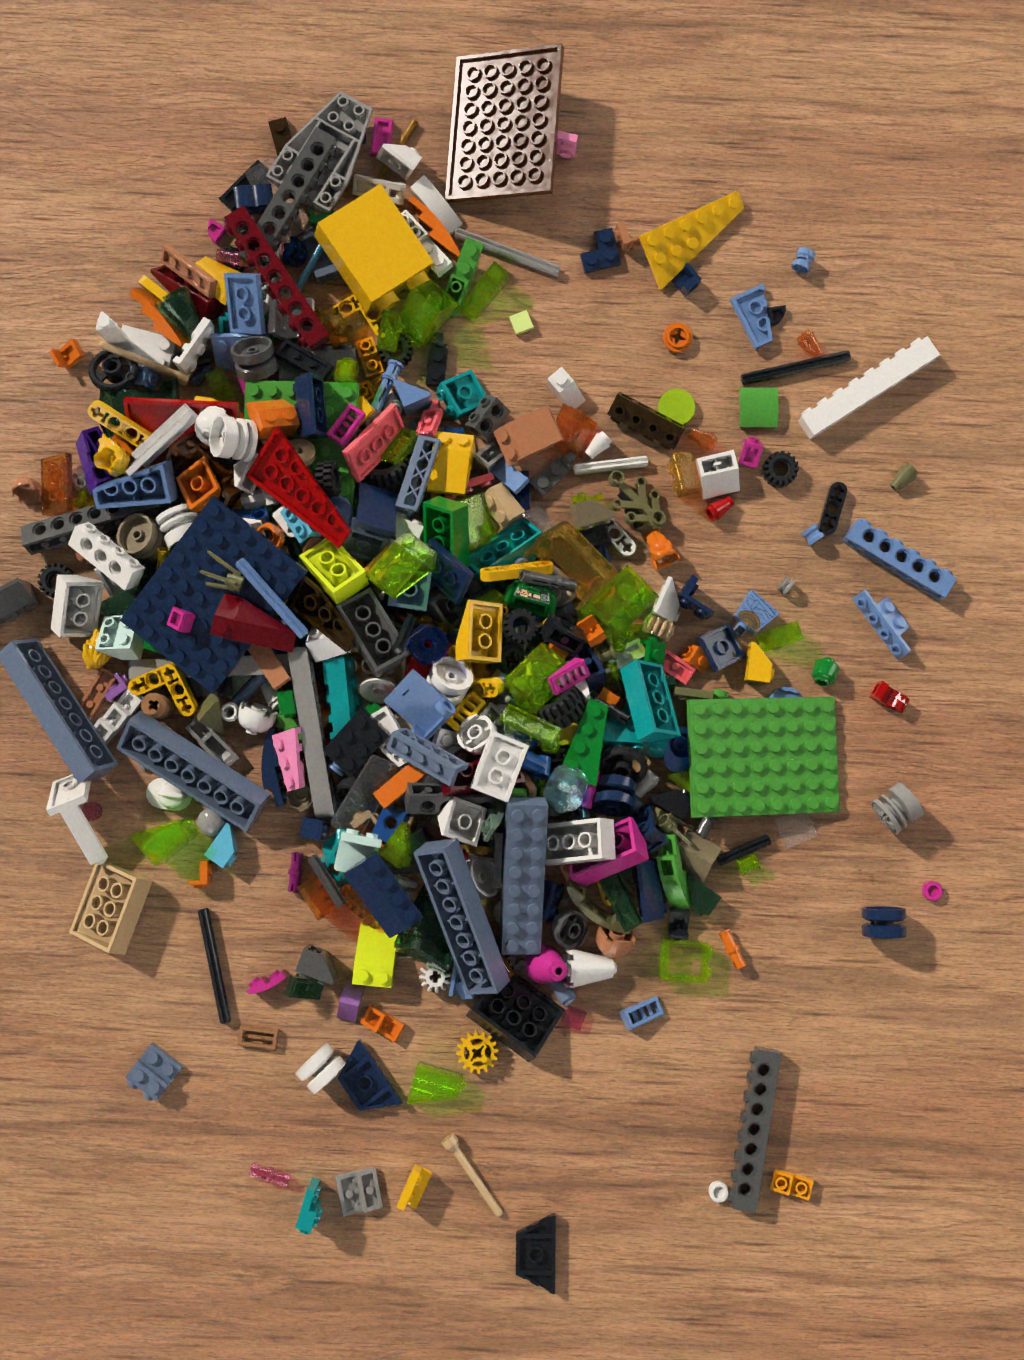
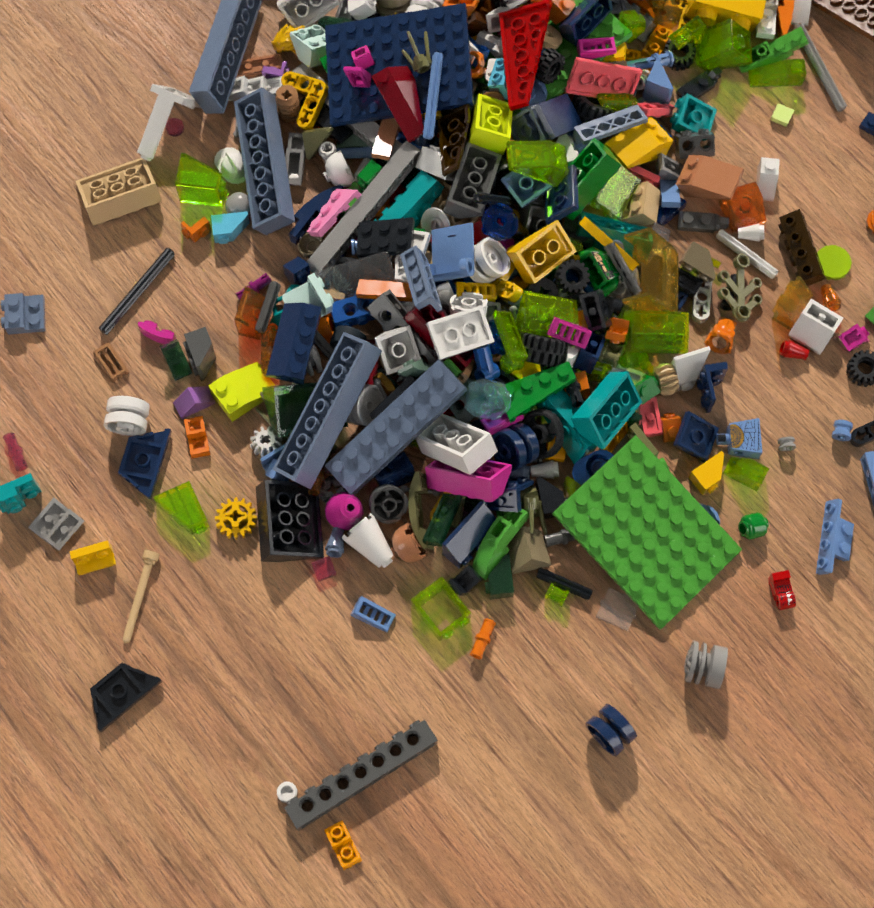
camera: 50 degrees right, 15 degrees down
(197, 640) = (358, 76): none -> dark pink slope
(398, 847) = (337, 322): clear neon green slope -> none
(932, 890) = (670, 754): dark pink tile -> none

